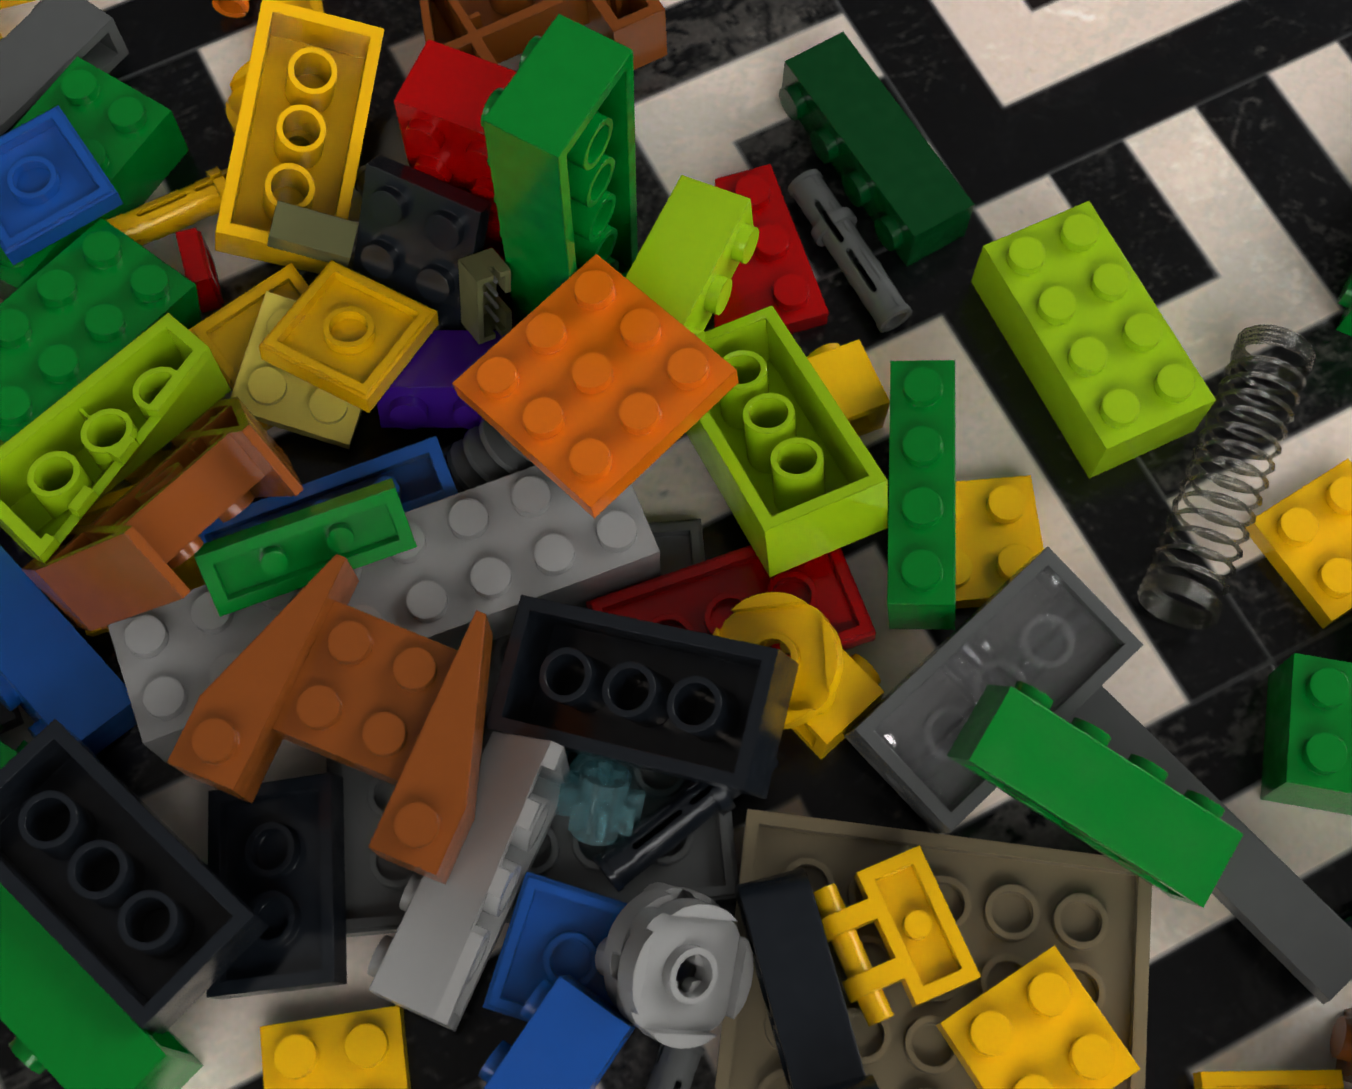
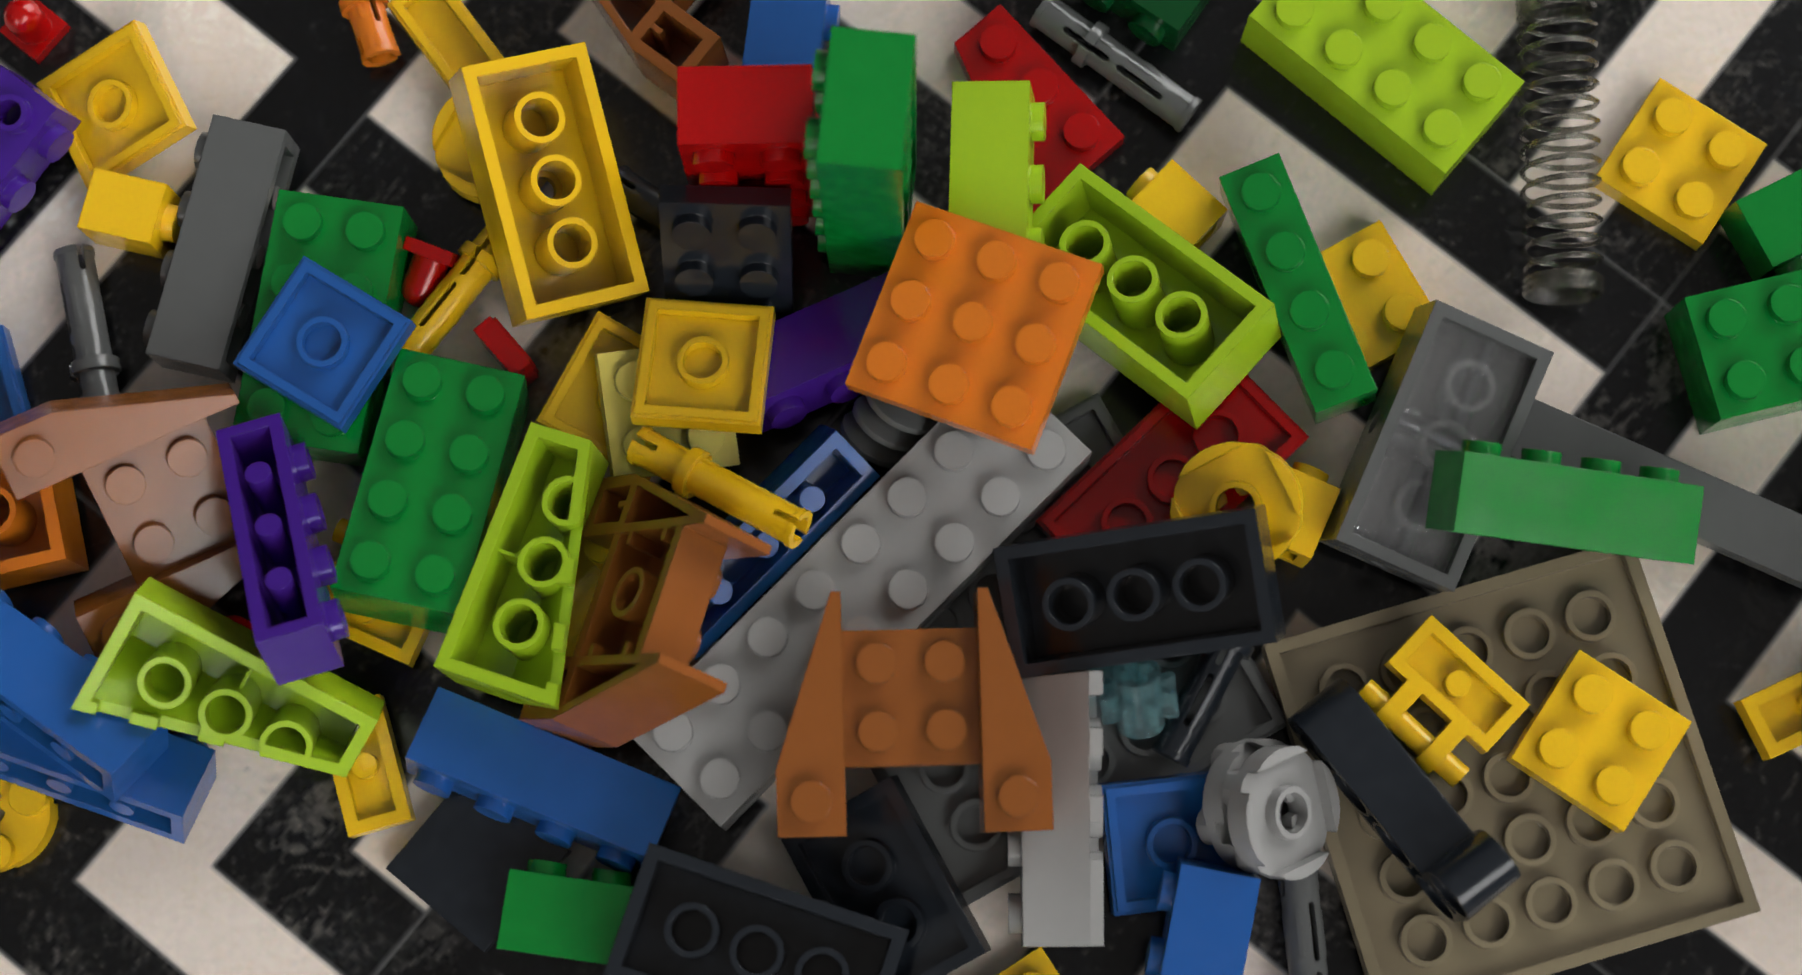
camera: 20 degrees left, 10 degrees up
(172, 175) = (425, 270): none -> red piece
(291, 421) = (696, 475): none -> yellow pin
(296, 546) = (785, 590): green plate -> none
(312, 233) = (619, 281): olive piece -> none
(479, 302) = (808, 278): olive piece -> none

